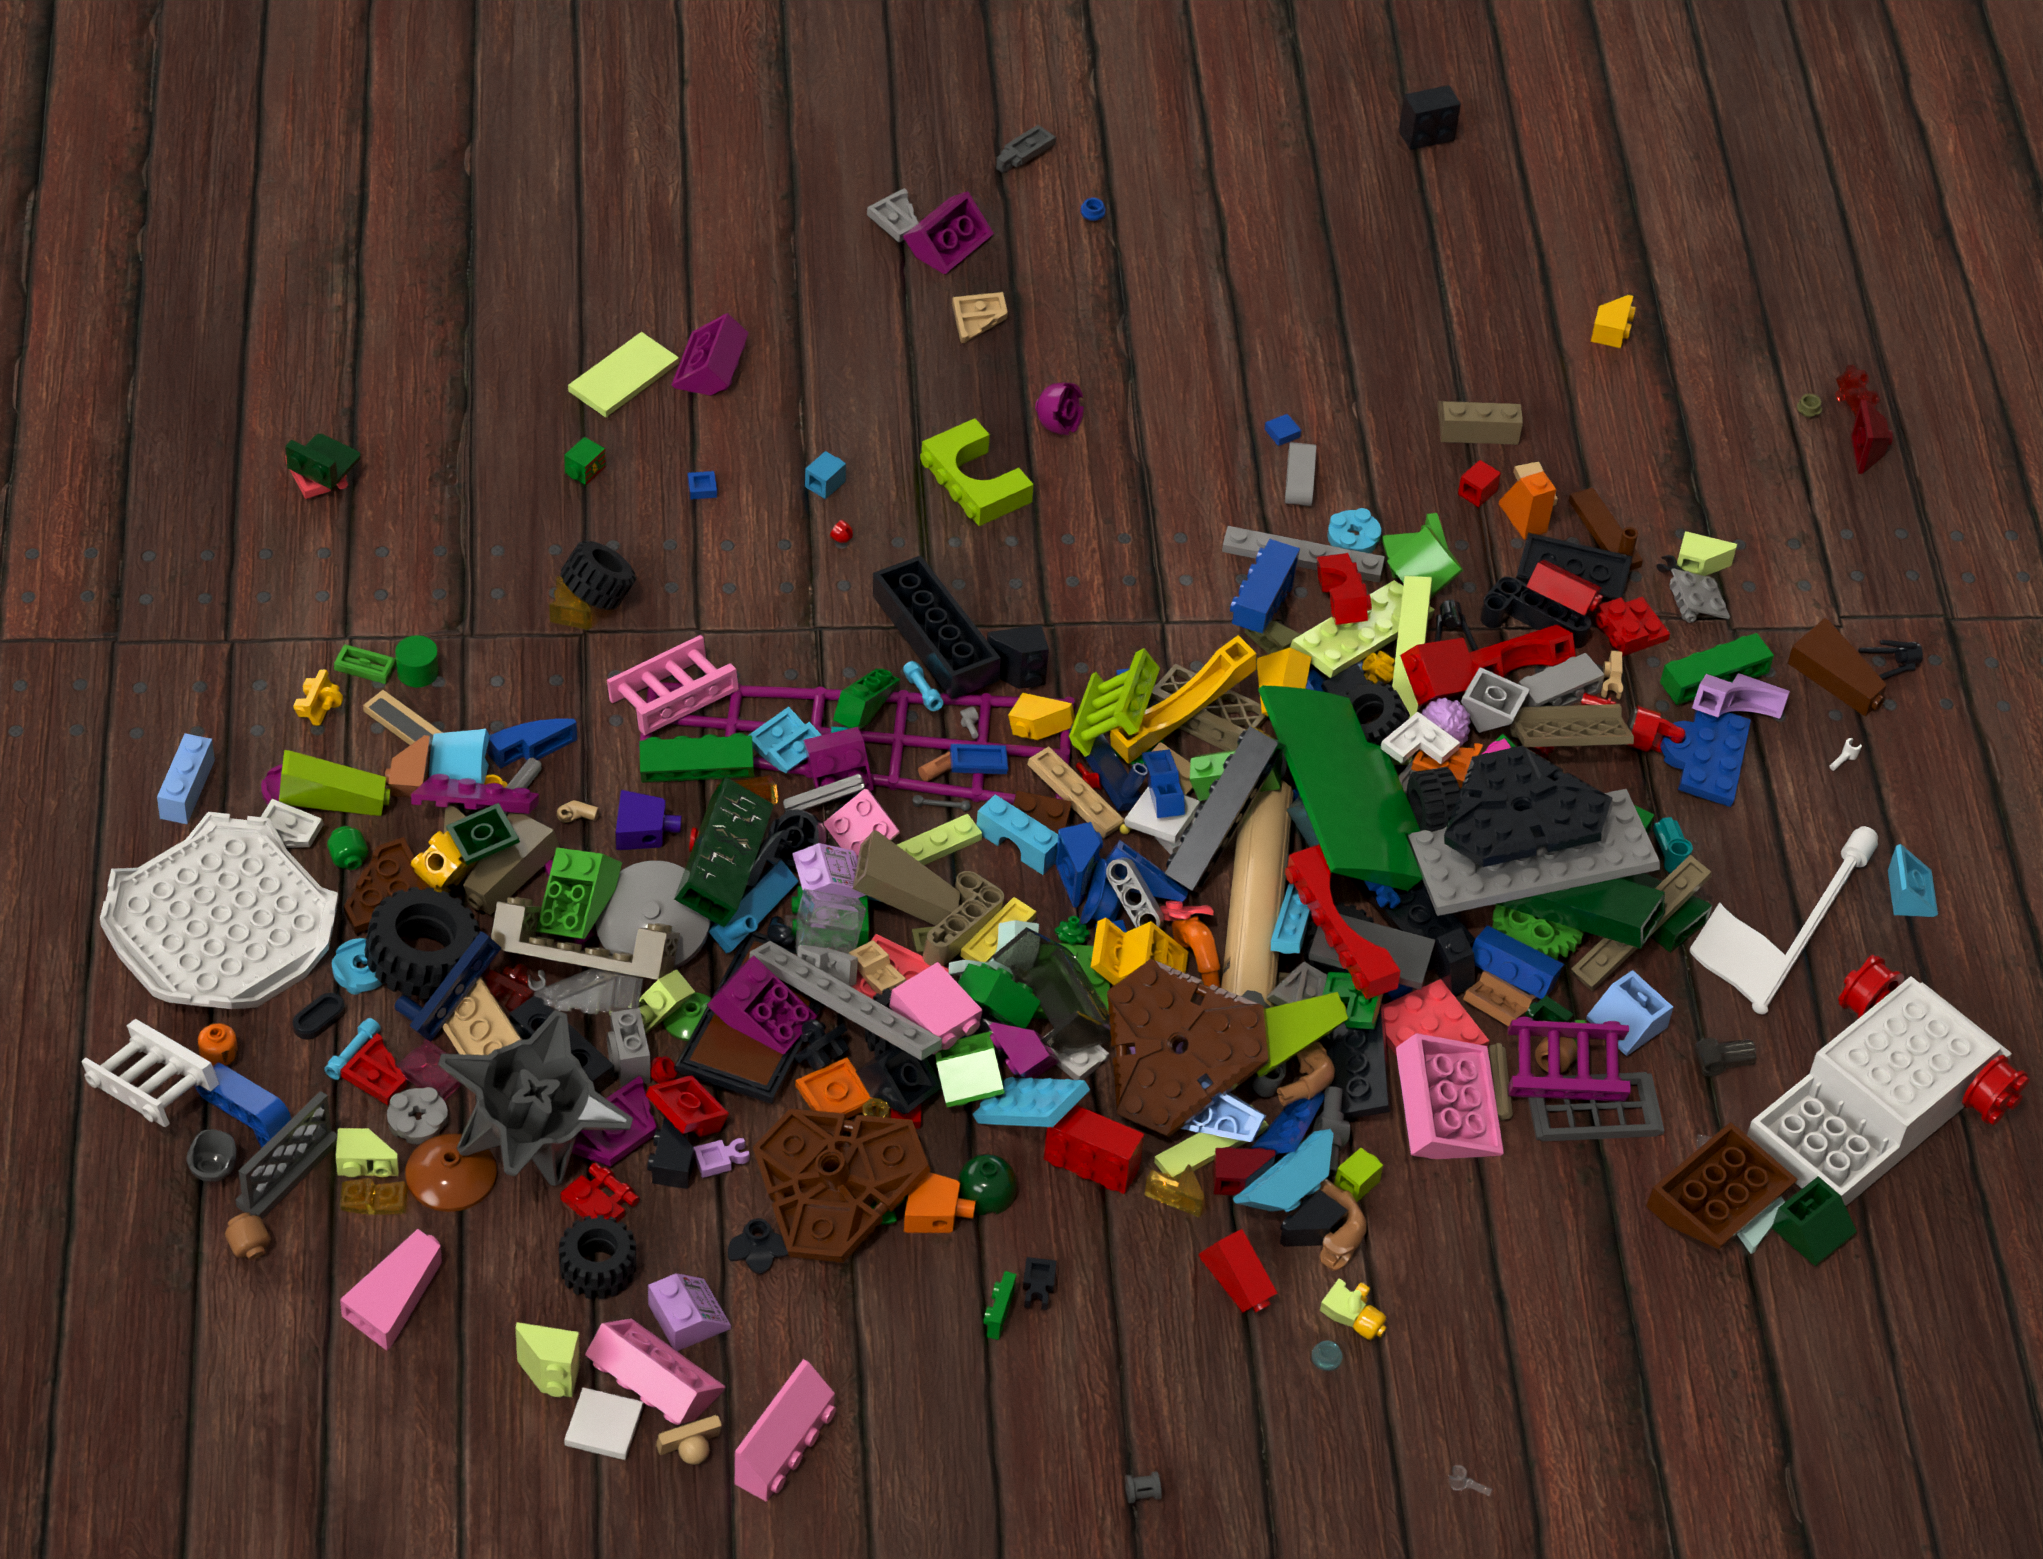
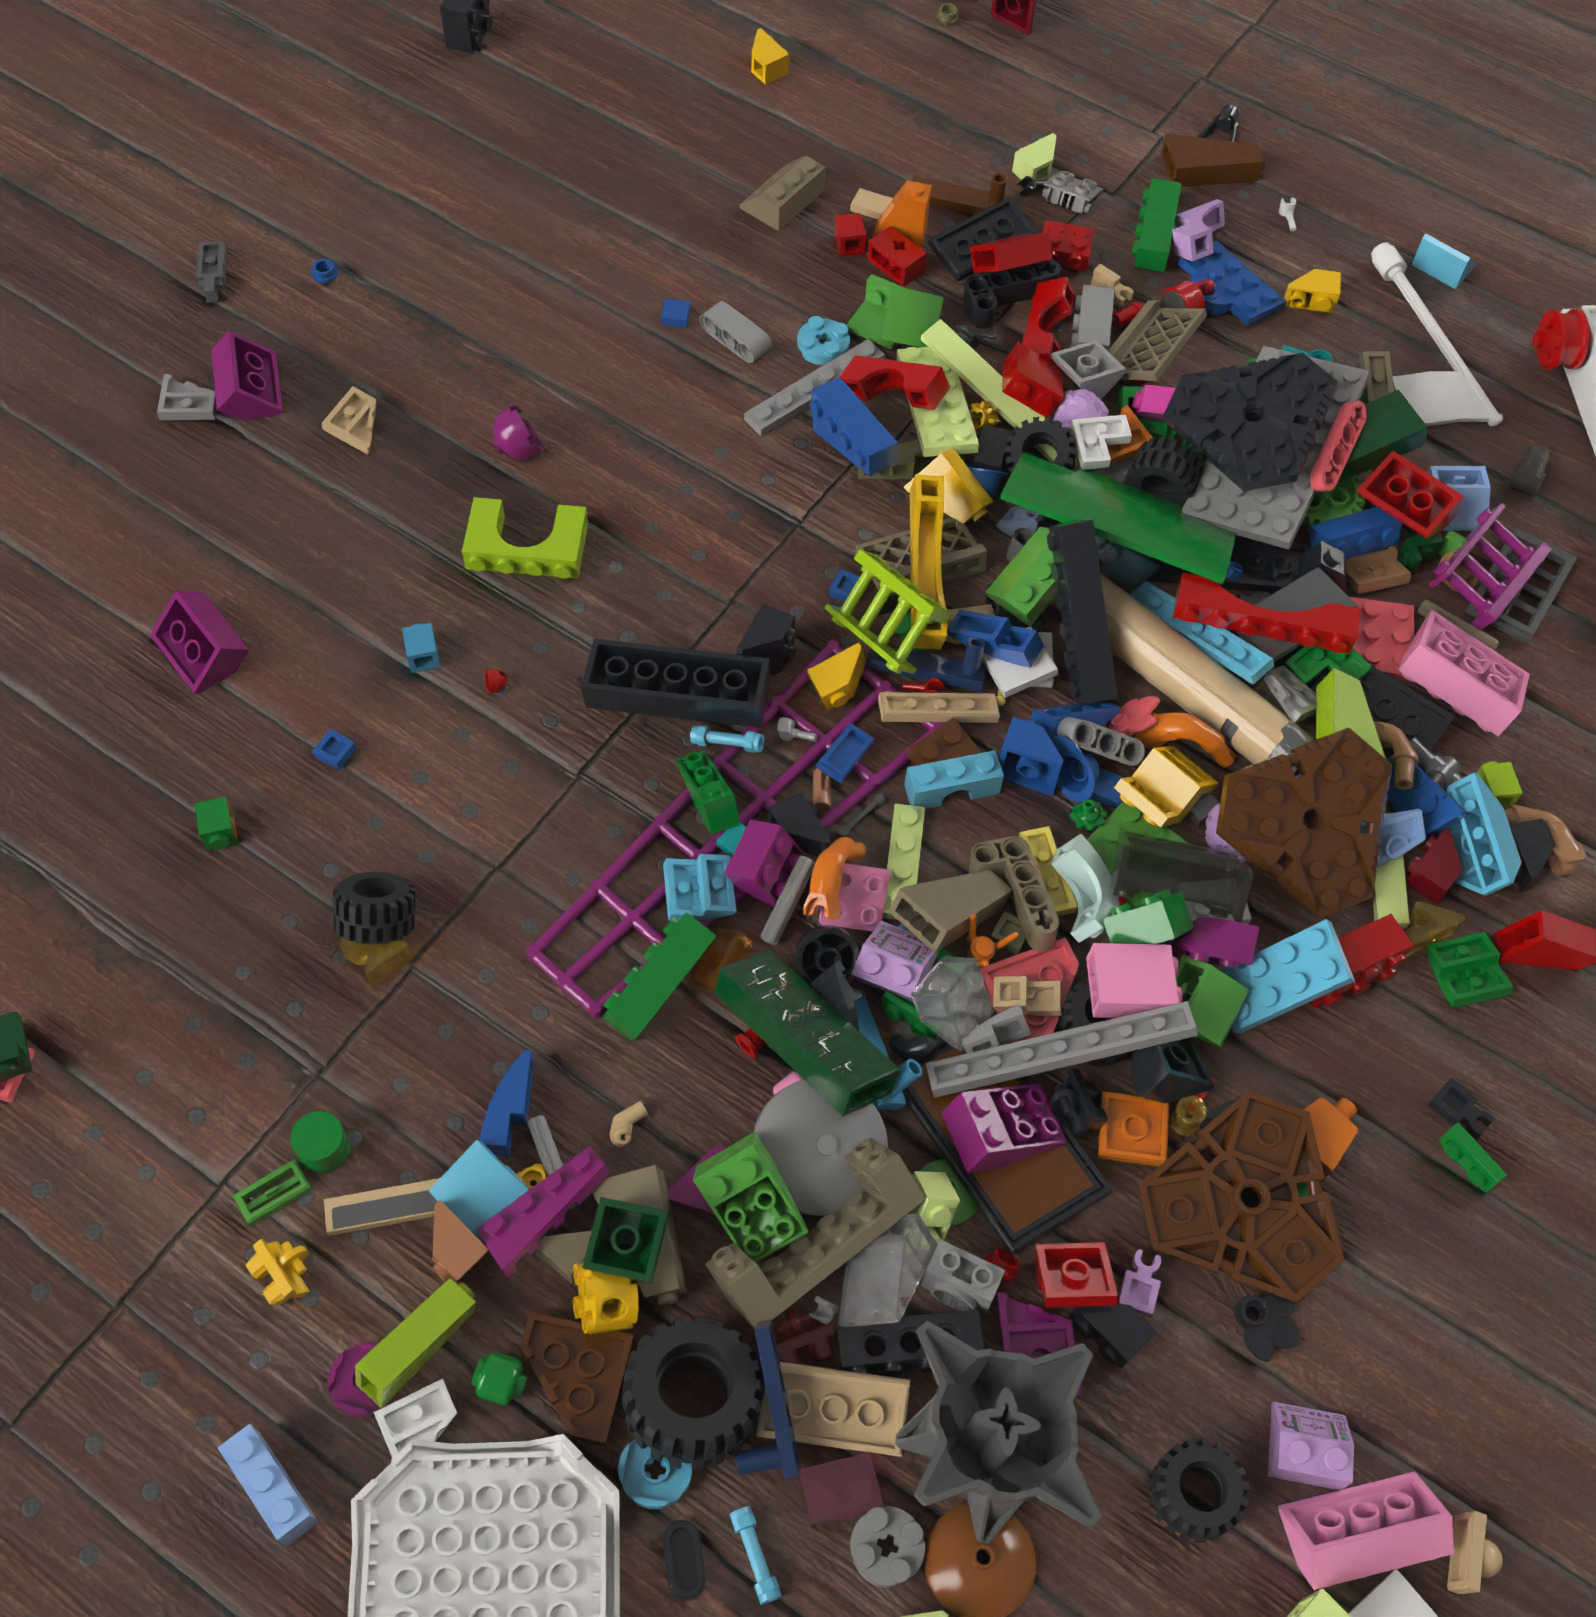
camera: 50 degrees left, 10 degrees up
(375, 1071) = (804, 1551): red wing -> none
(589, 1200) = (1117, 1444): red plate -> none
(623, 374) = (143, 722): yellowish green tile -> none
(643, 821) = (689, 1074): dark purple torso -> none
(680, 702) = (579, 950): bright pink fence -> none
(784, 1432) = (1521, 1461): bright pink slope -> none
(840, 797) = (828, 875): none -> orange piece
(888, 762) = (801, 822): none -> black slope
(894, 927) = (983, 947): none -> orange plant
(989, 1183) = (1322, 1072): dark green cylinder -> none
(1169, 1236) = (1468, 969): none -> green slope
(1491, 524) = (897, 256): none -> red brick
(1560, 885) = (1350, 423): none -> coral beam
(1575, 969) = (1411, 496): none -> red slope
(1765, 812) = (1314, 291): none -> yellow slope

